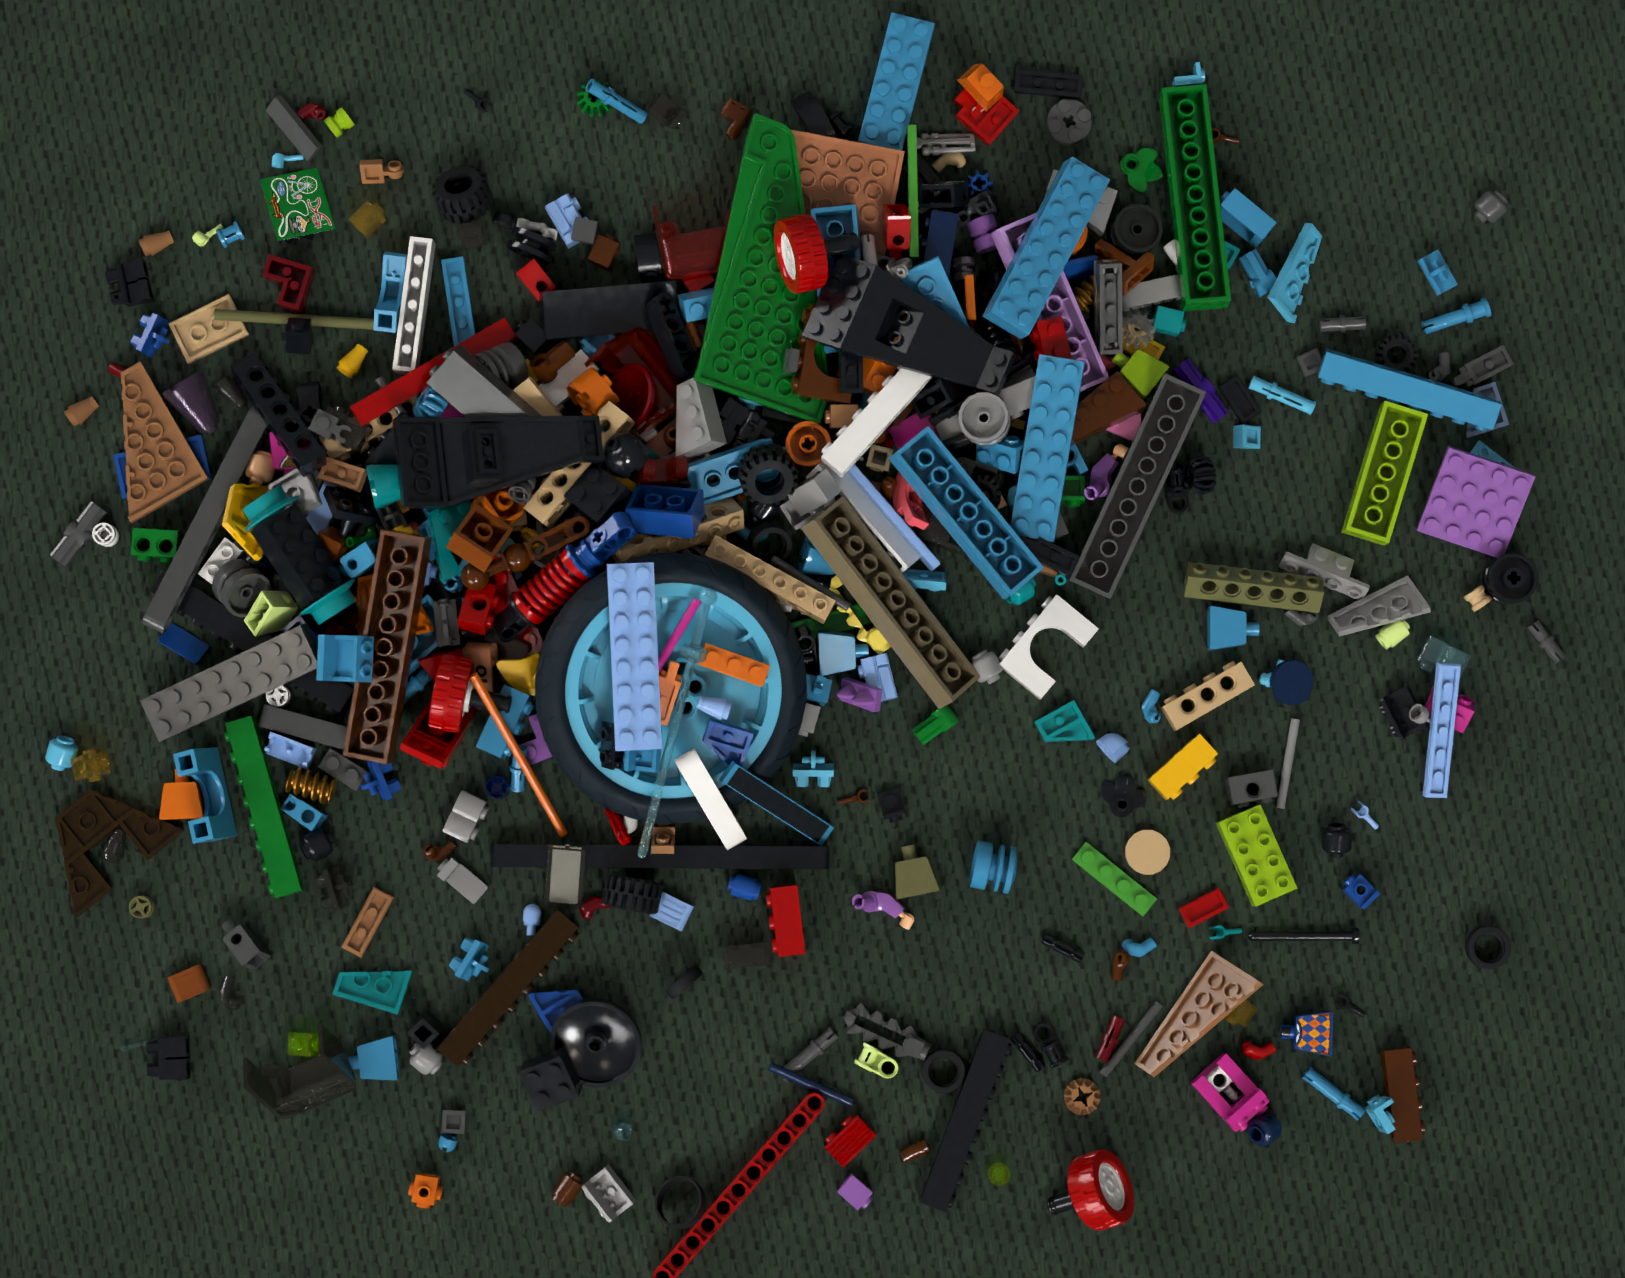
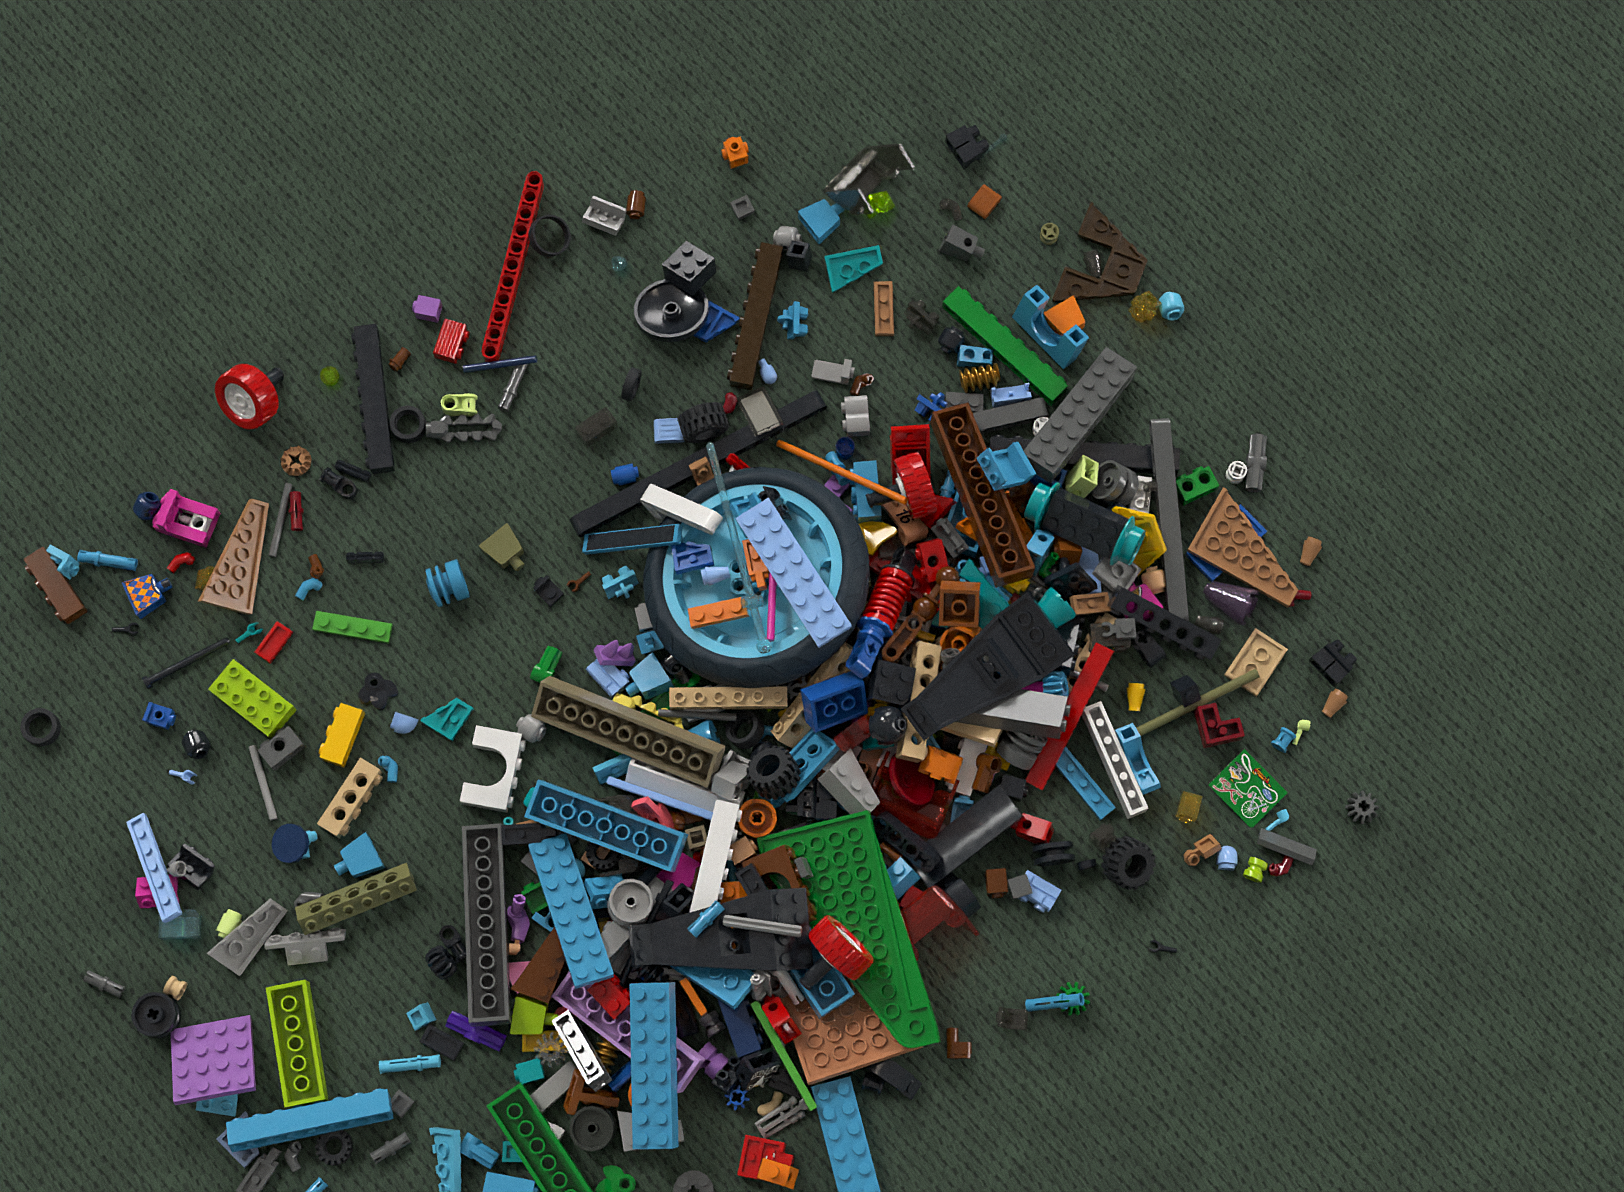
camera: 150 degrees right, 10 degrees down
(152, 336) = (1292, 633): blue hips -> none
(184, 644) = (1131, 427): blue slope -> none
(194, 115) = (1366, 802): none -> dark grey gear
(209, 562) = (1149, 487): none -> clear smoke hand
(359, 149) = (1227, 858): none -> light blue piece
(447, 1141) = (738, 190): dark azure hinge -> none
(539, 227) = (1069, 870): white arm -> none
(786, 921) = (580, 464): red brick -> none
(867, 314) = (763, 926): none -> light grey axle
(879, 901) = (514, 519): medium lavender arm -> none
(918, 355) = (706, 918): none -> dark azure pin
(1147, 852) = (337, 660): tan tile -> none

